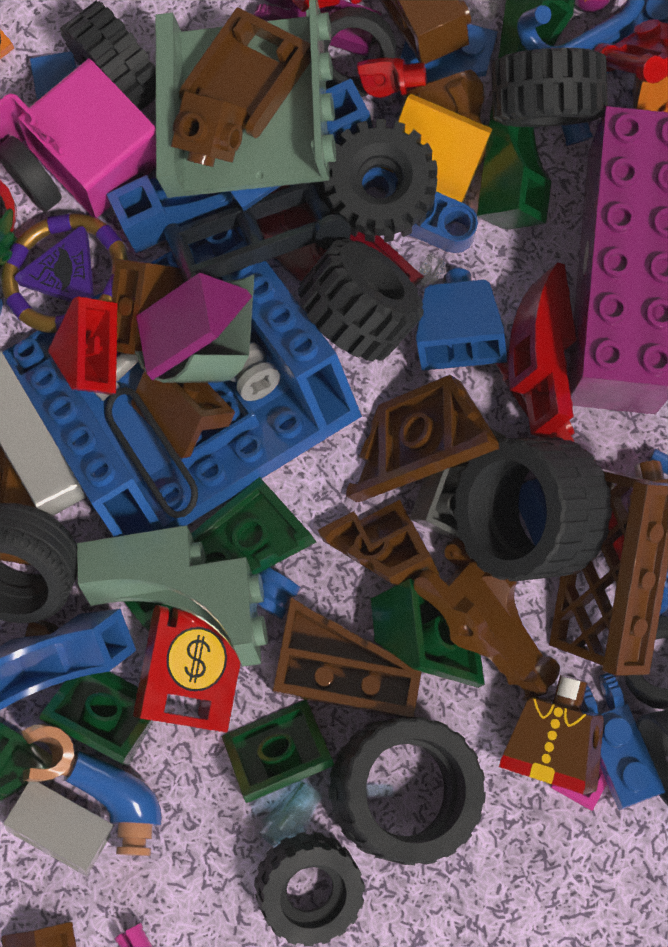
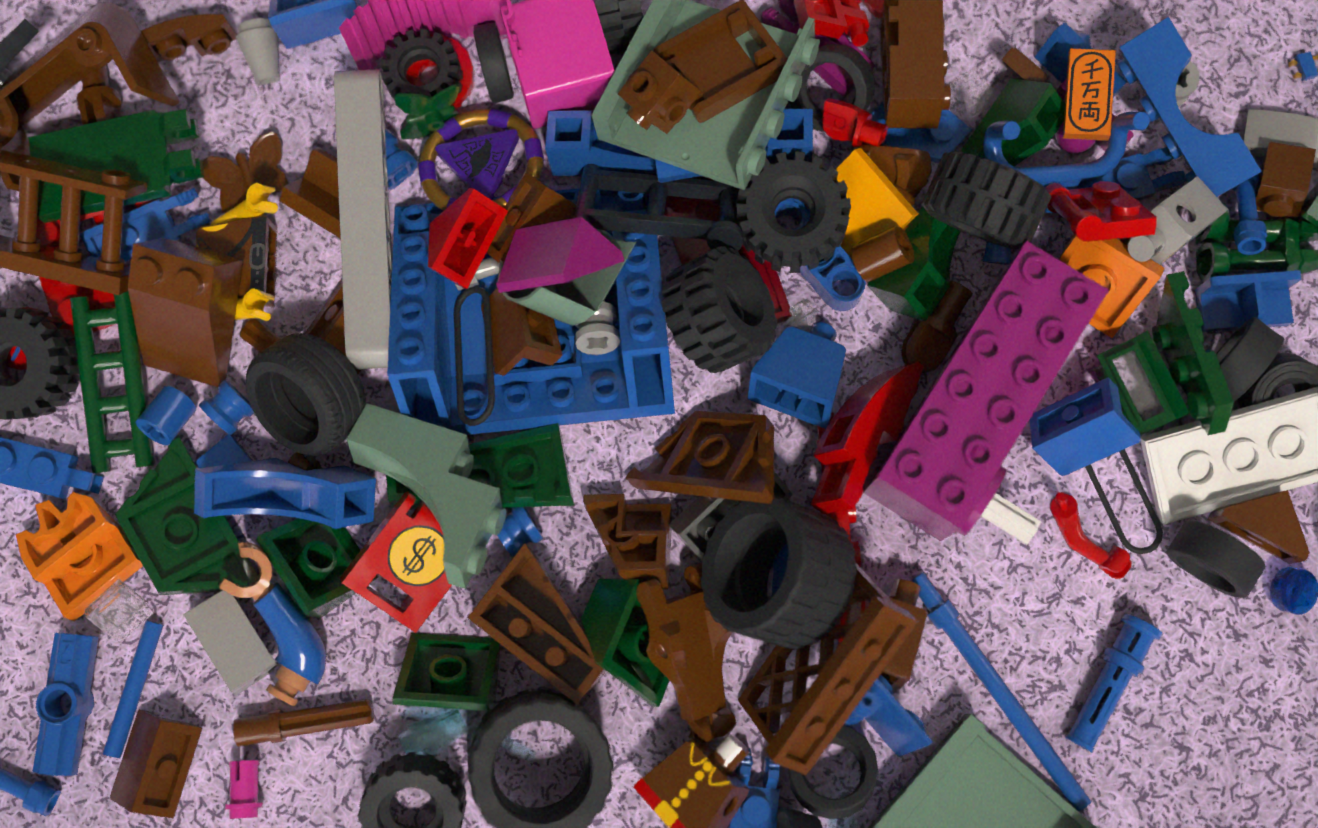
camera: 35 degrees right, 0 degrees up
(143, 881) = (279, 724): none -> reddish brown axle
(478, 180) = (882, 253): none -> reddish brown piece
(560, 235) = (932, 340): none -> reddish brown arm

